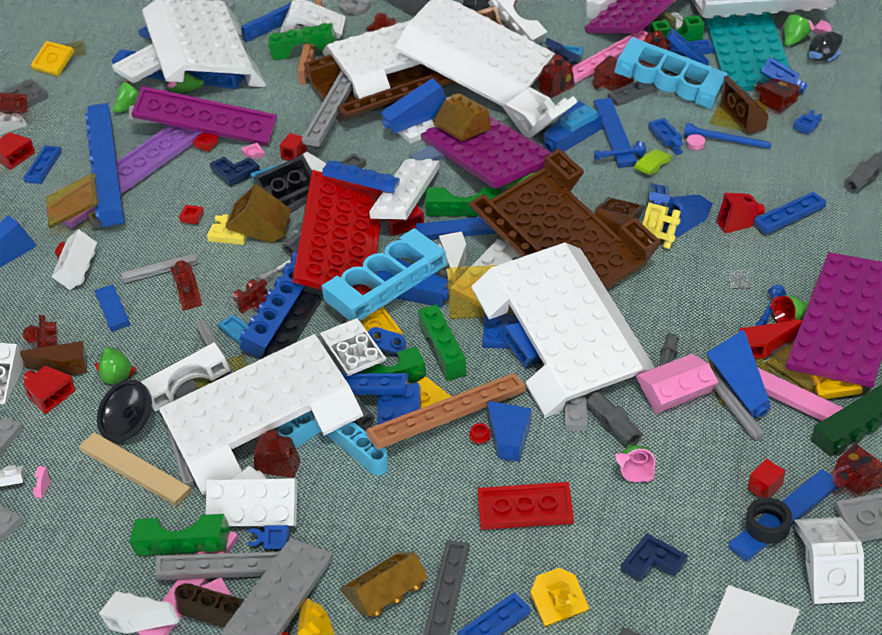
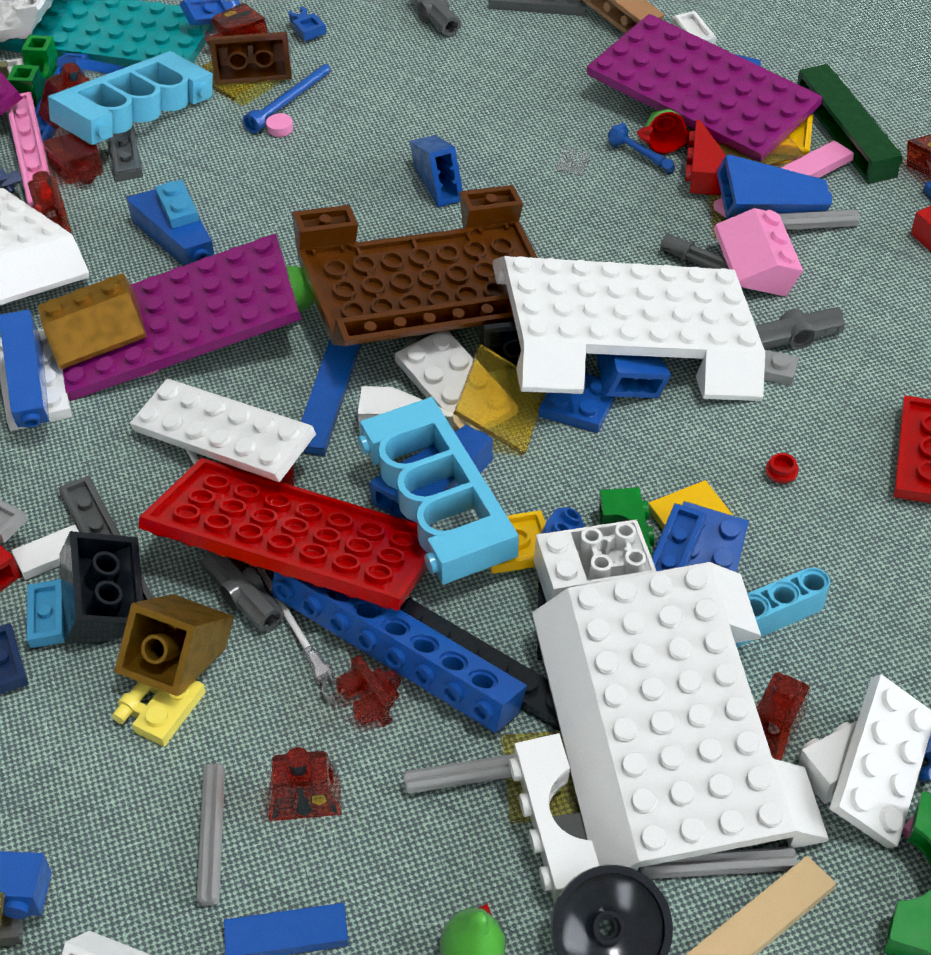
camera: 75 degrees left, 5 degrees up
(191, 214) = (84, 755): red plate -> none
(233, 328) = (438, 734): dark azure tile -> none
(361, 176) = (186, 462): blue plate -> none
(427, 153) = (124, 401): sand blue tile -> none
(442, 203) = (293, 351): green arch -> none
(444, 411) = (749, 490): nougat plate -> none
(449, 354) = (551, 465): green arch -> none
(509, 429) = (791, 430): blue slope -> none
(534, 111) = (152, 239): white bracket -> none
(614, 132) = (214, 190): blue tile -> none
(617, 212) = (403, 219): reddish brown slope -> none
(636, 463) = (882, 325): bright pink hat -> none
(639, 149) = (267, 174): blue piece -> none
(652, 161) = (300, 170): lime slope -> none
(654, 221) = (445, 189): light yellow plate -> none
(659, 194) = (402, 167): blue plate -> none
(666, 134) = (251, 142): blue plate -> none
(738, 212) = (461, 117): red torso -> none
(789, 212) = (474, 86): blue plate -> none

